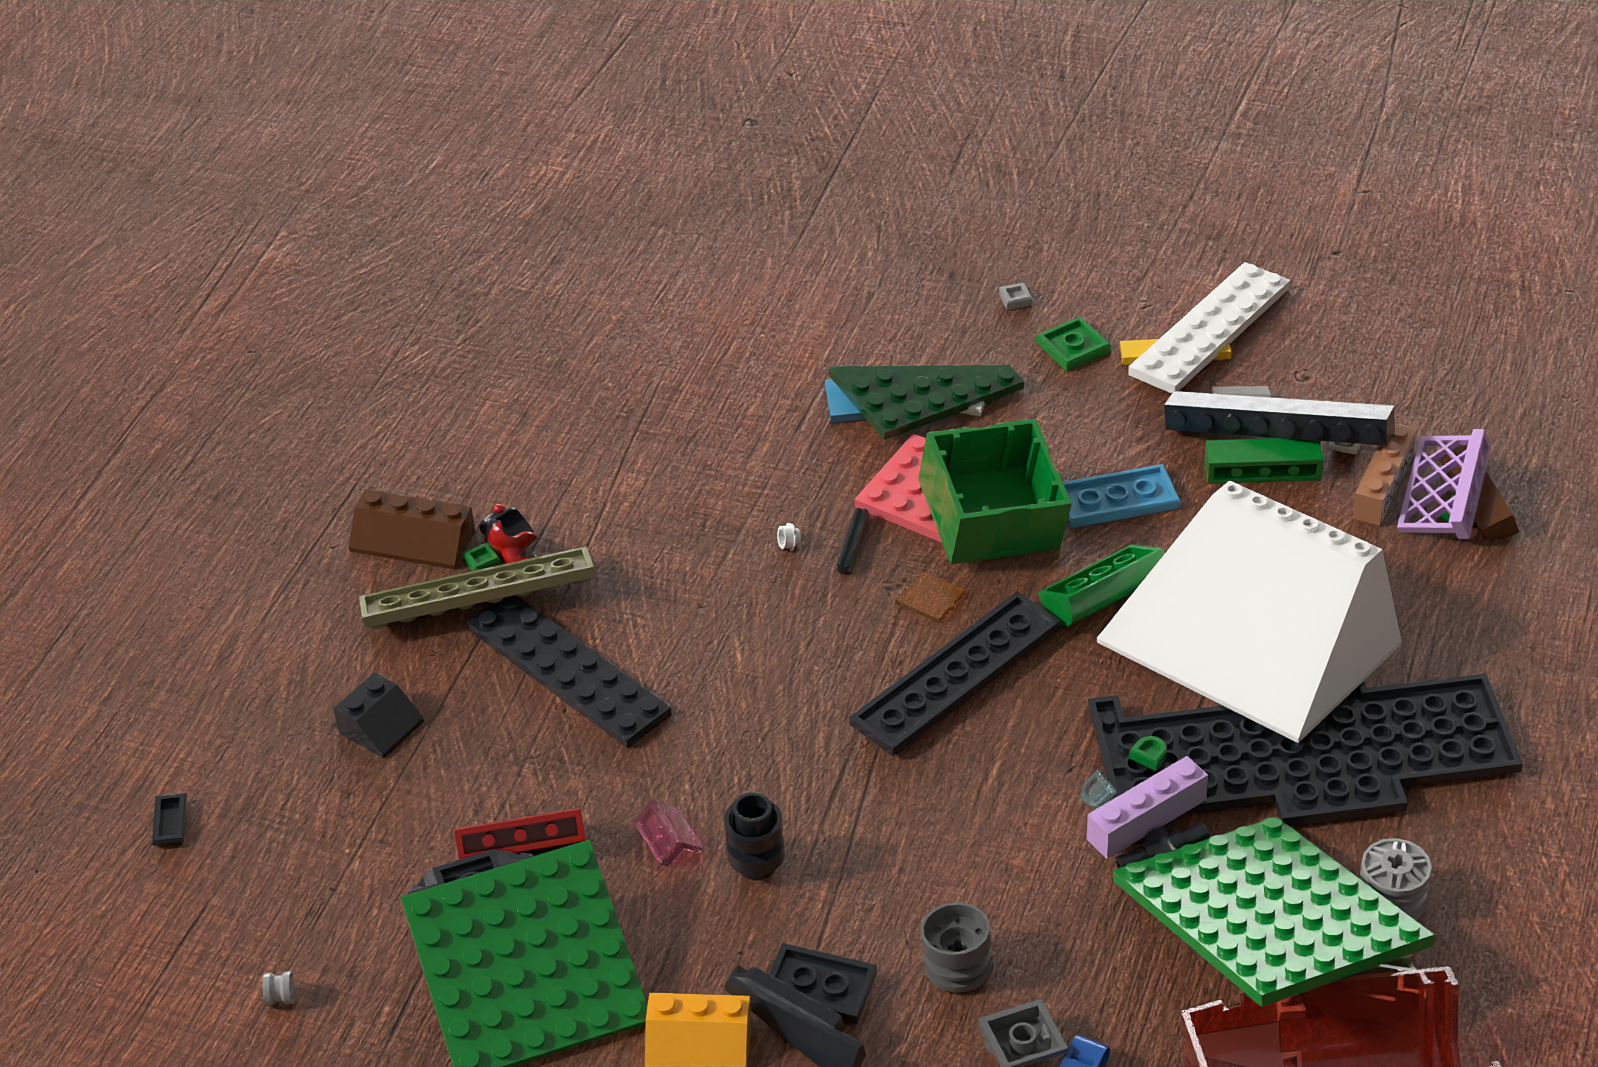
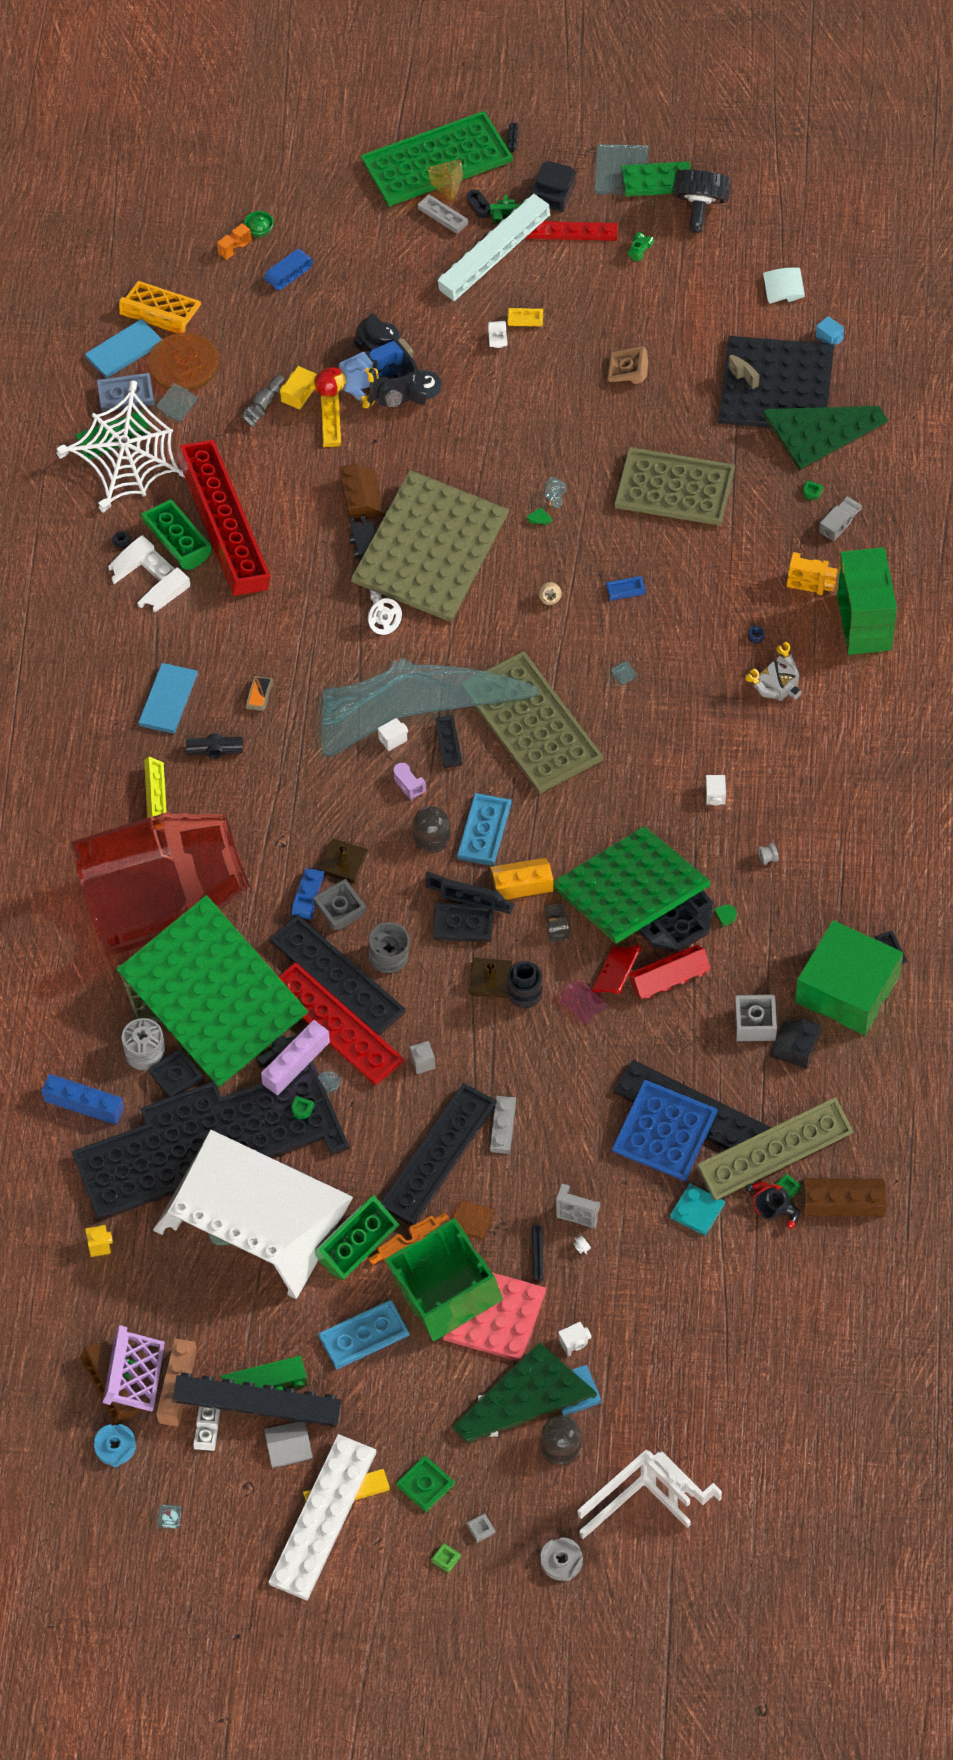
camera: 165 degrees right, 15 degrees up
(257, 762) = (848, 977): none -> green tile
(390, 918) = (726, 914): none -> green tile
(421, 747) = (755, 1018): none -> light grey brick
(614, 842) = (616, 969): none -> red door
(618, 554) = (697, 1210): none -> teal plate
(619, 633) = (665, 1130): none -> blue plate
(666, 956) = (556, 922): none -> clear smoke plate
(771, 255) = (651, 1467): none -> white piece
(781, 558) = (576, 1208): none -> light grey piece
(801, 898) = (489, 977): none -> dark brown tile
(837, 440) = (574, 1338): none -> white brick
(848, 697) = (503, 1124): none -> light grey plate
(890, 337) = (561, 1440): none -> clear smoke tile
(927, 253) = (573, 1558): none -> light grey plate
(945, 792) = (422, 1057): none -> light grey brick
(1037, 580) = (417, 1233): none -> orange piece
(1054, 944) = (338, 975): none -> black plate
(1065, 277) = (446, 1557): none -> bright green tile
(1073, 874) = (346, 1031): none -> red plate
(1342, 838) = (175, 1074): none -> black plate
(1407, 360) = (169, 1516): none -> clear light blue tile
(1465, 421) = (115, 1433): none -> dark azure plate
(1485, 644) = (99, 1240): none -> yellow brick
(1501, 830) = (82, 1099): none -> blue brick

